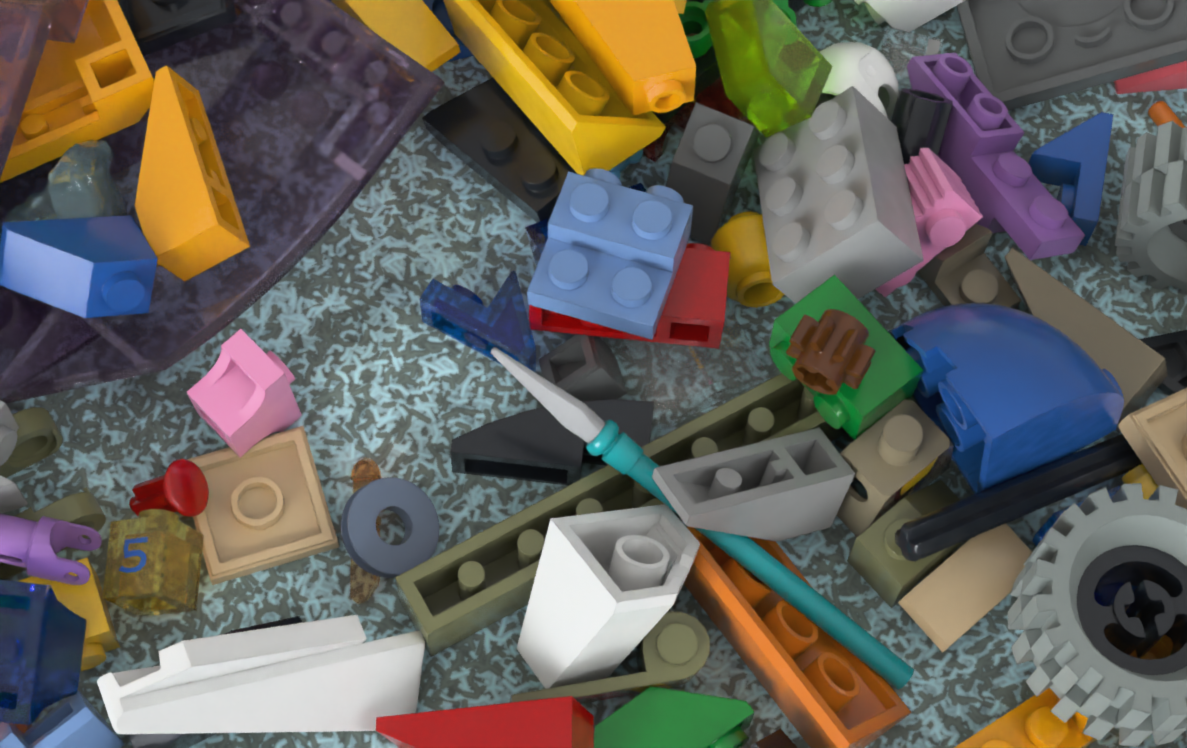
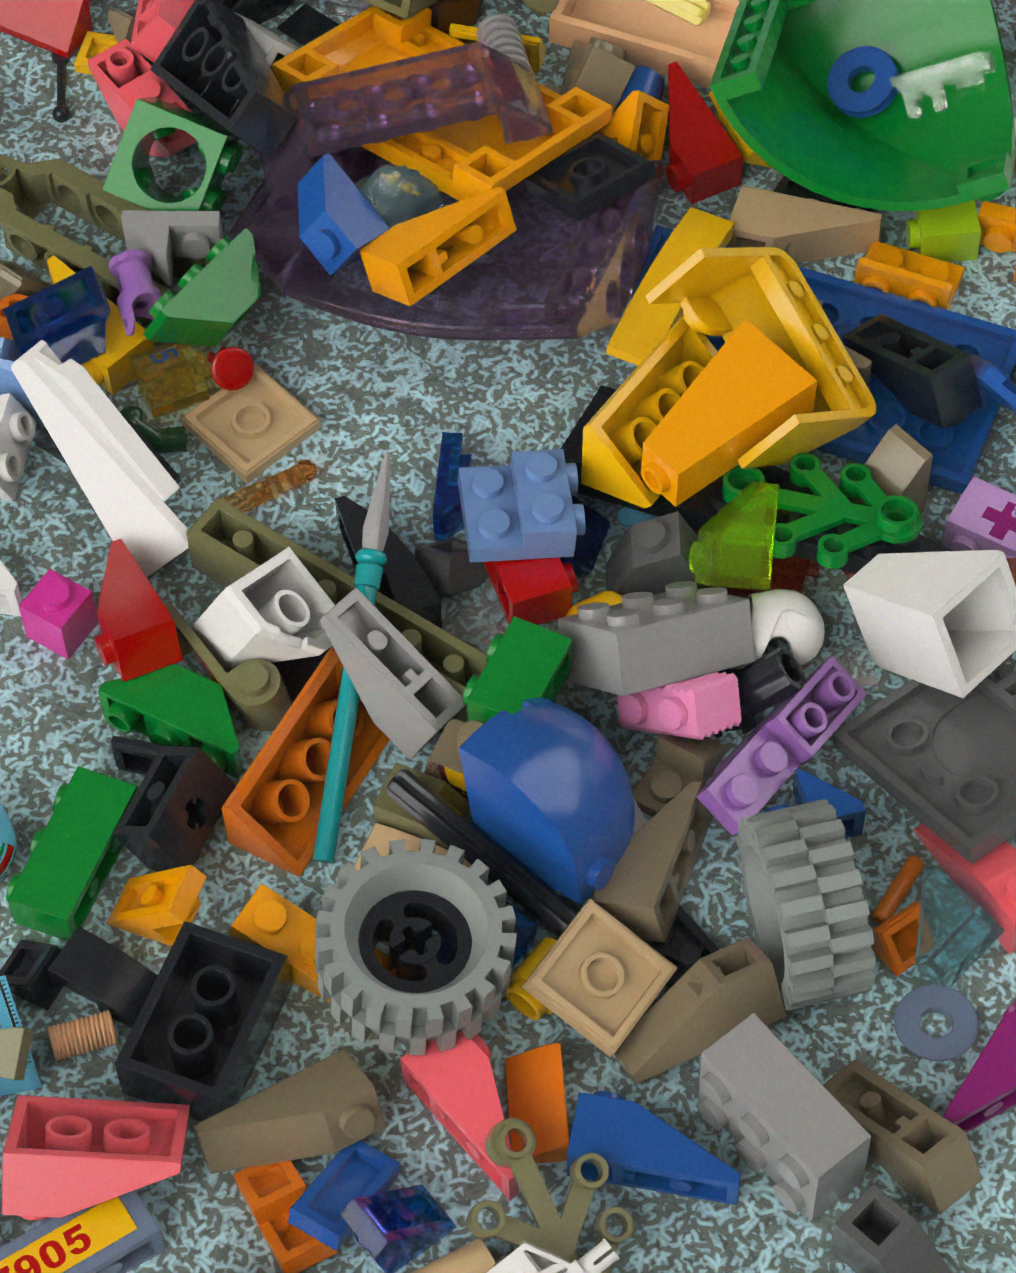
camera: 70 degrees right, 10 degrees down
(89, 453) = (210, 297): none -> green slope
(225, 615) = (163, 439): none -> dark green arm
(245, 394) = (313, 368): bright pink brick -> none
(360, 531) = (277, 474): sand blue piece -> none
(830, 351) = (492, 644): reddish brown gear -> none

